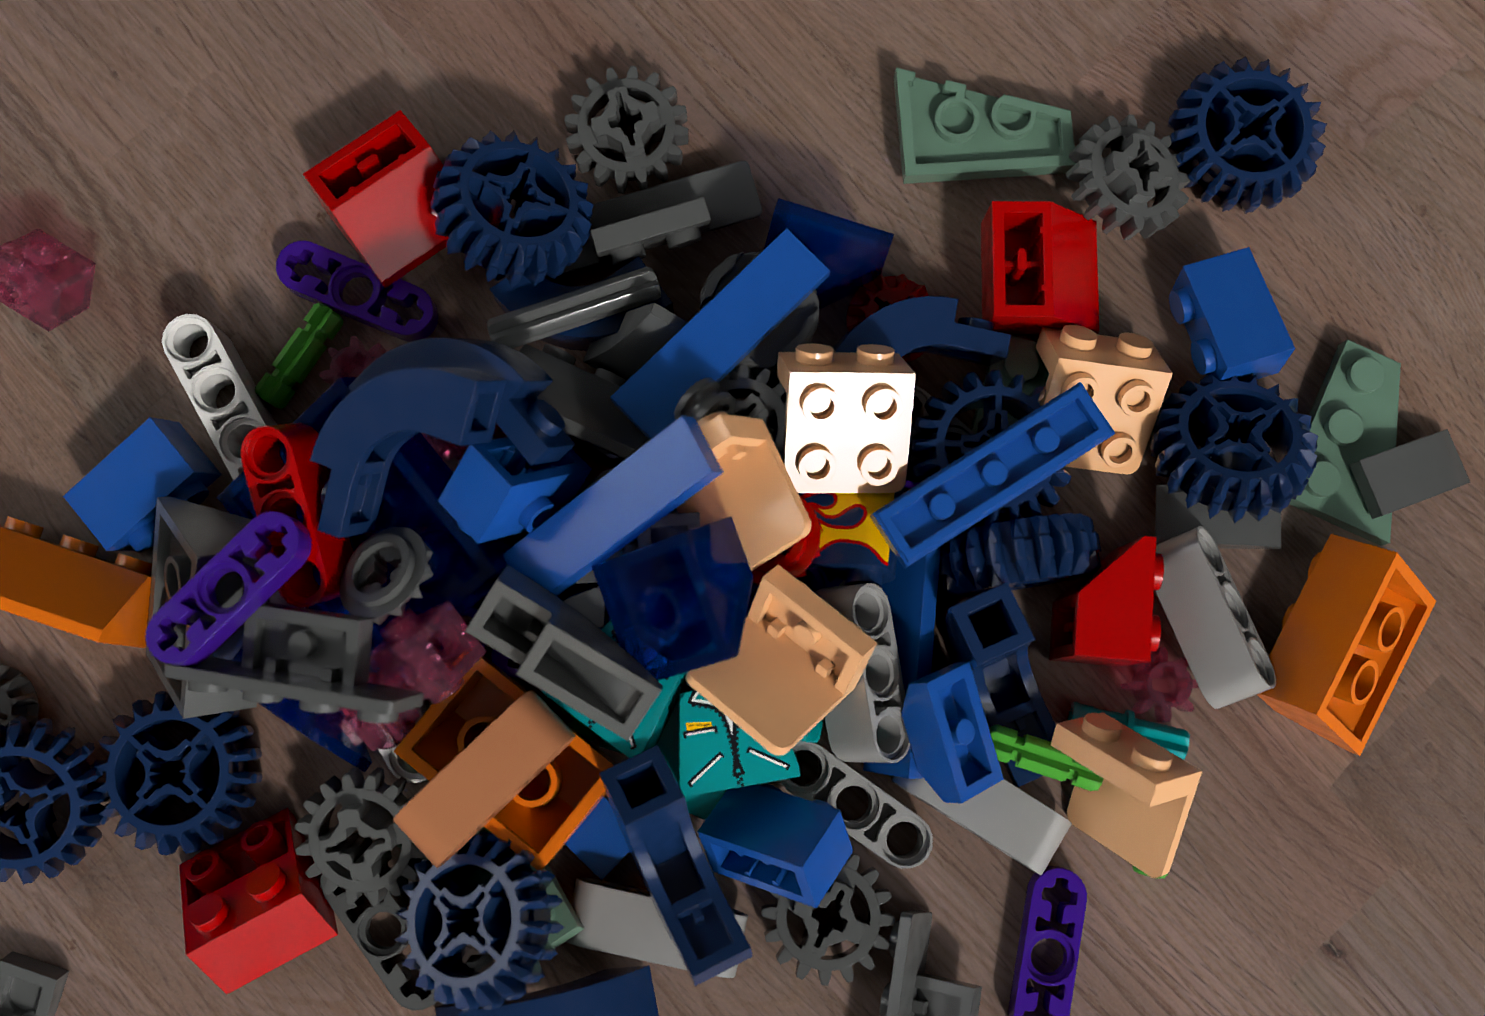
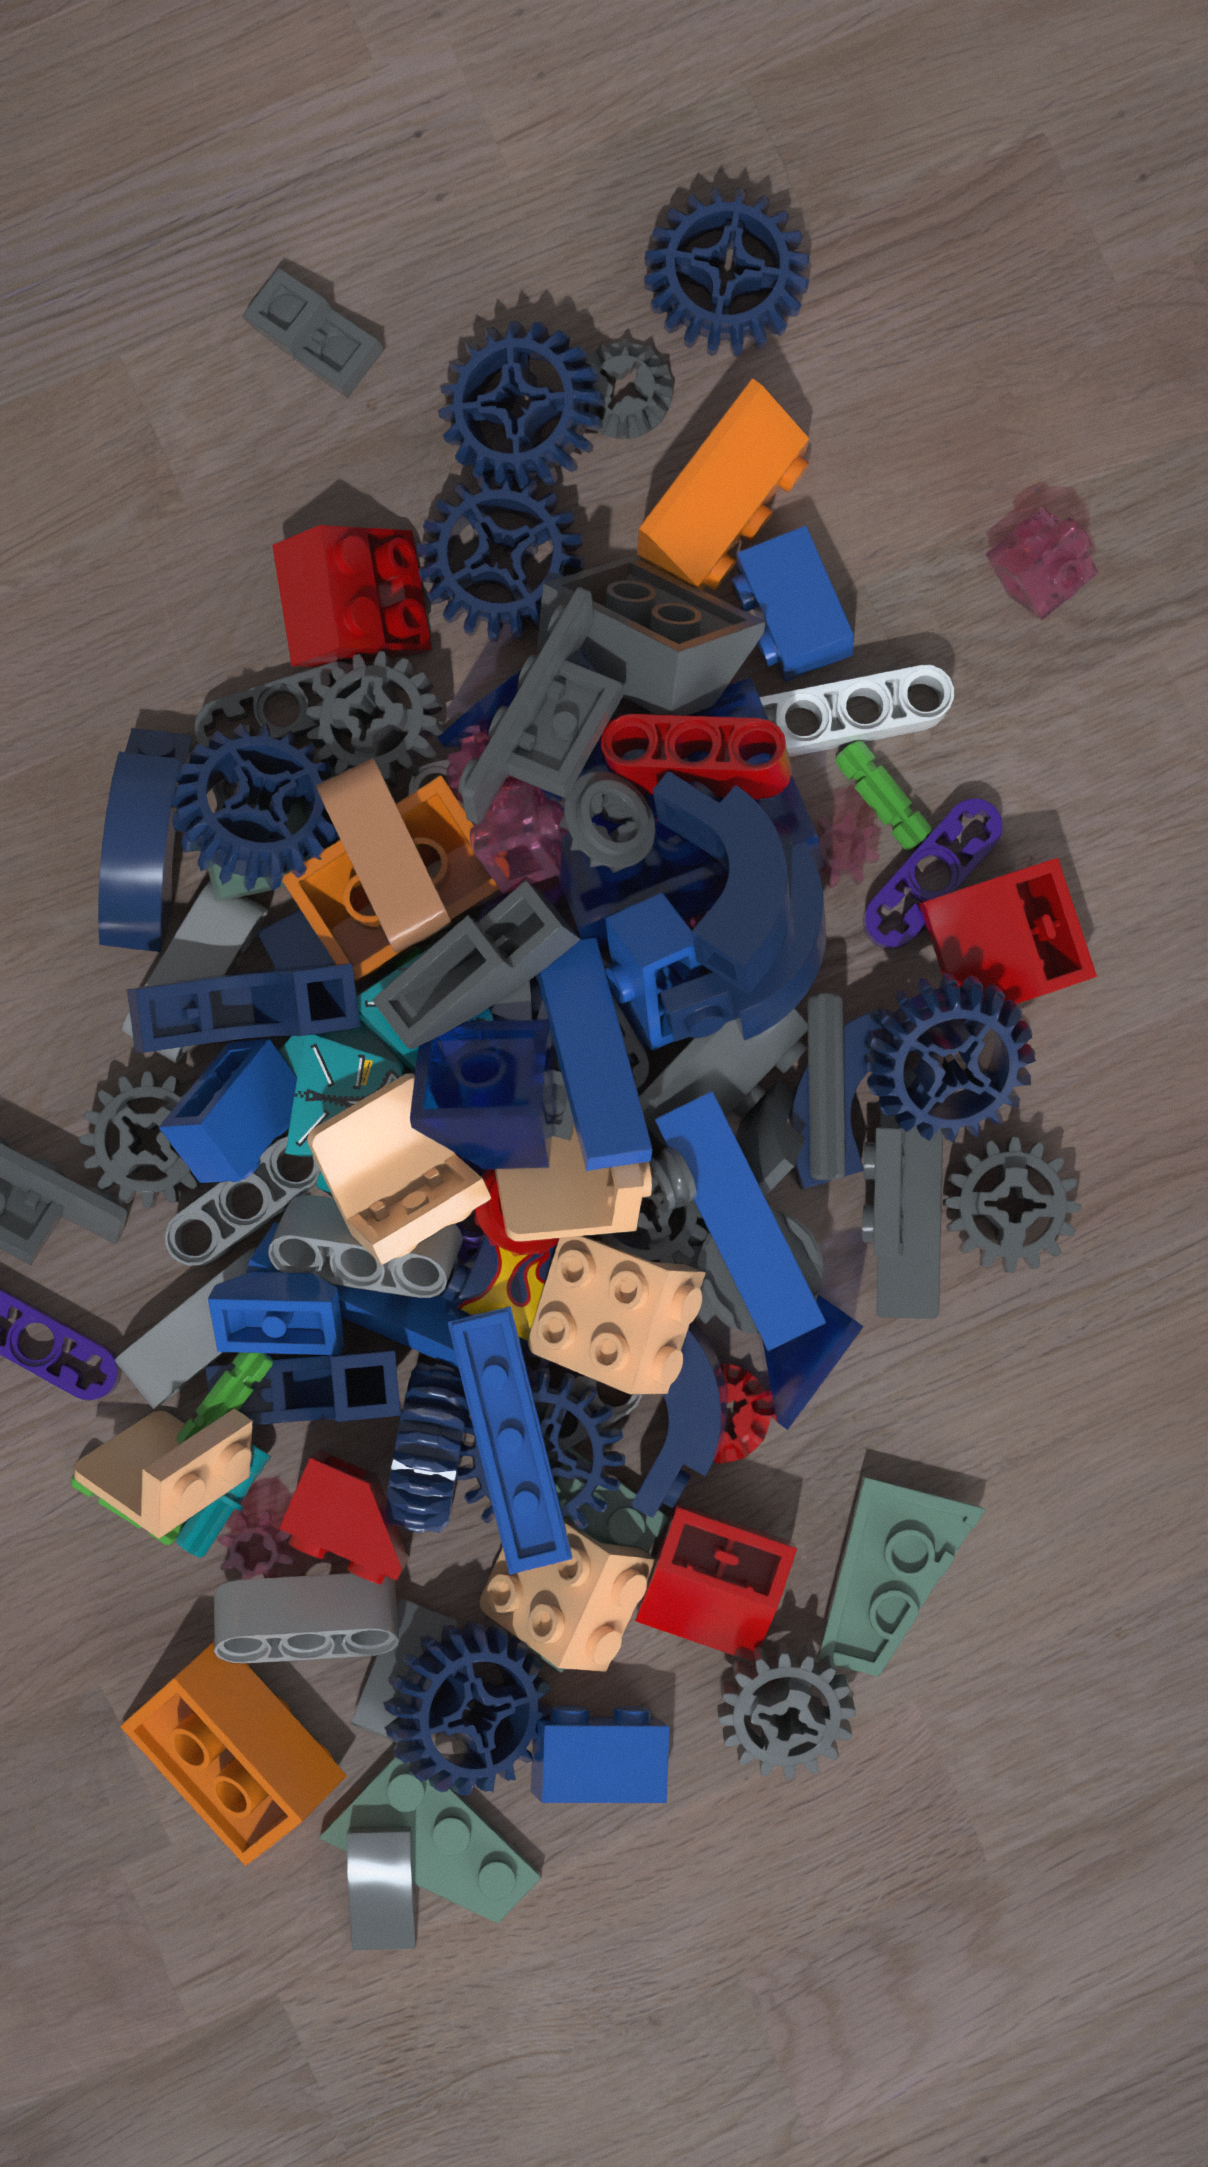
camera: 110 degrees right, 5 degrees up
(200, 589) = (633, 622): dark purple beam -> none
(1226, 101) = (764, 1864): dark blue gear -> none

